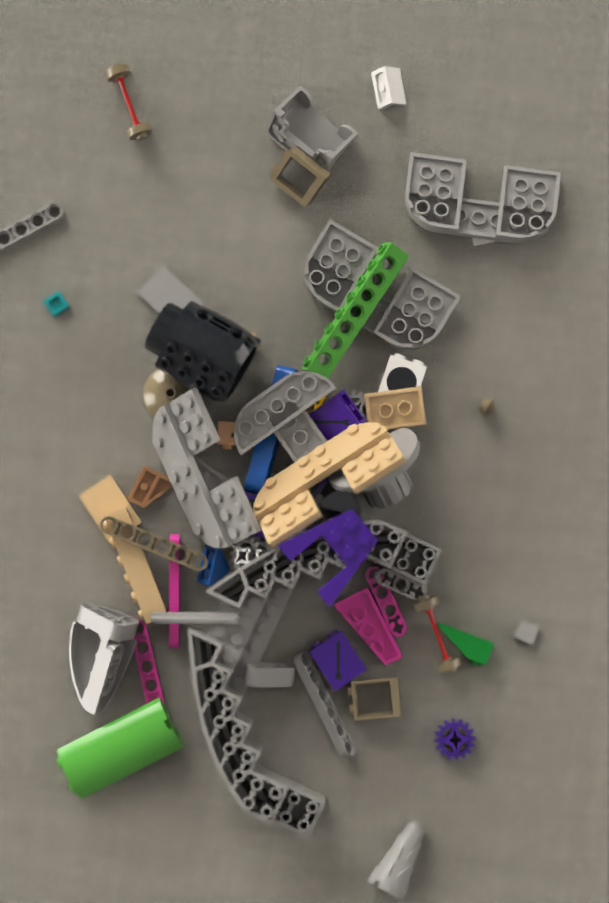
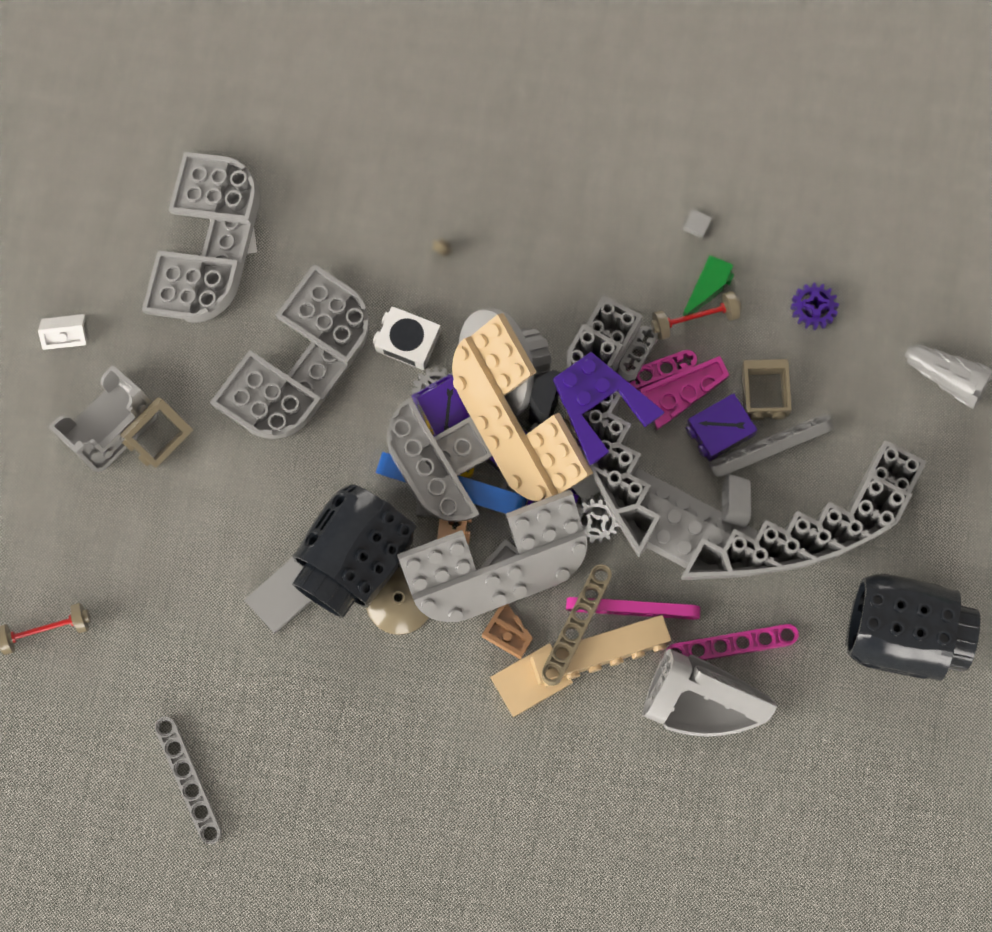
camera: 90 degrees left, 10 degrees down
(56, 304) = (278, 731): teal tile -> none
(119, 748) = (817, 681): bright green cylinder -> none
(164, 827) = (911, 628): none -> black piece
(195, 617) = (668, 575): light grey axle -> none
(215, 568) = (609, 557): blue slope -> none
(396, 260) = (319, 369): bright green brick -> none
(396, 408) = (436, 341): tan tile -> none

